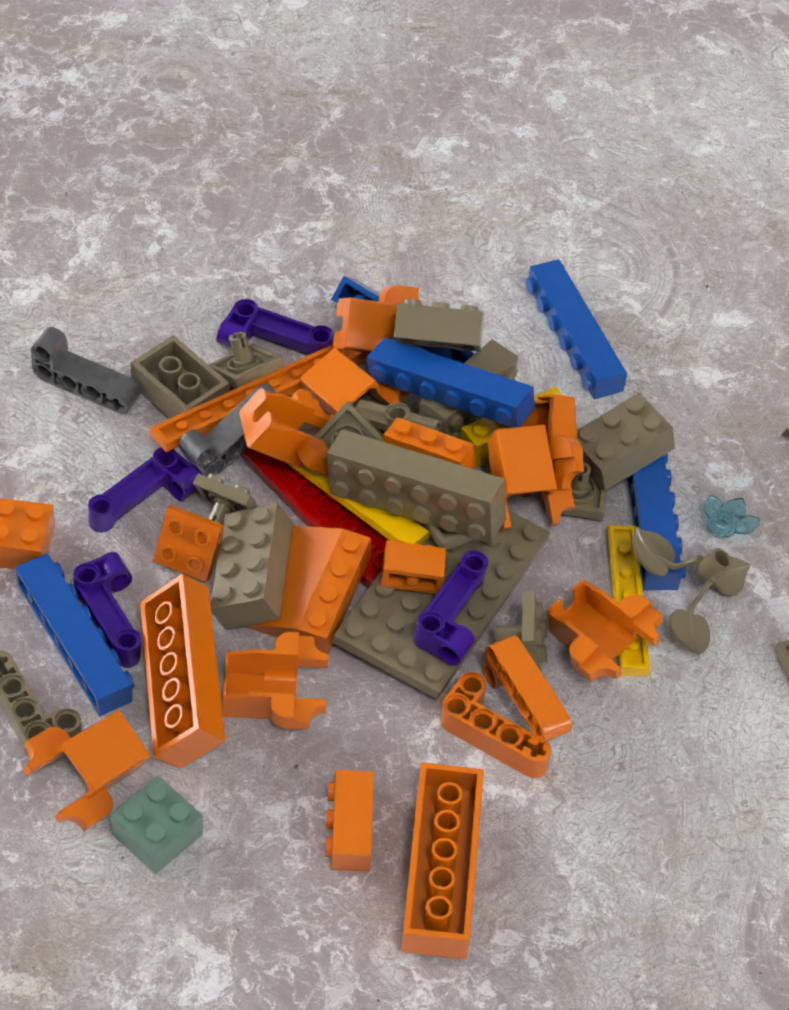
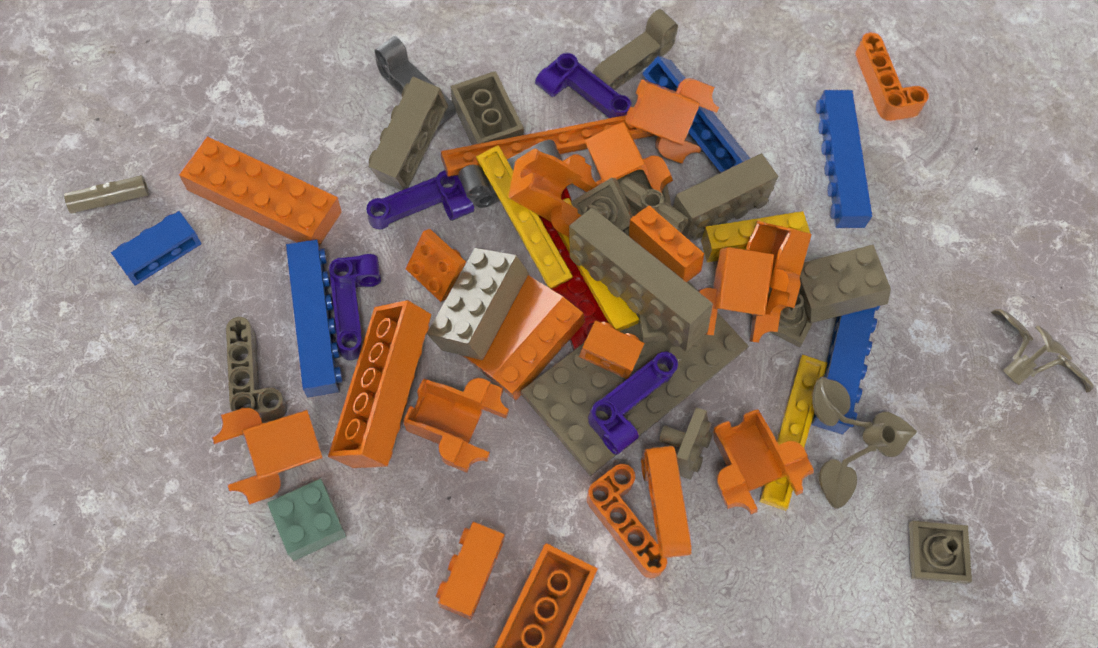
camera: 20 degrees right, 15 degrees up
(106, 421) = (408, 134): none -> dark tan brick
(223, 496) = (481, 234): dark tan plate -> none
(246, 361) = (548, 111): dark tan plate -> none
(266, 470) = (524, 220): none -> yellow tile
(320, 278) = (639, 52): none -> dark tan beam
(439, 325) = (714, 131): dark tan brick -> none
(451, 383) = (708, 189): blue brick -> none
(598, 257) = (883, 83): none -> orange beam
(728, 517) = (916, 377): clear light blue plate -> none

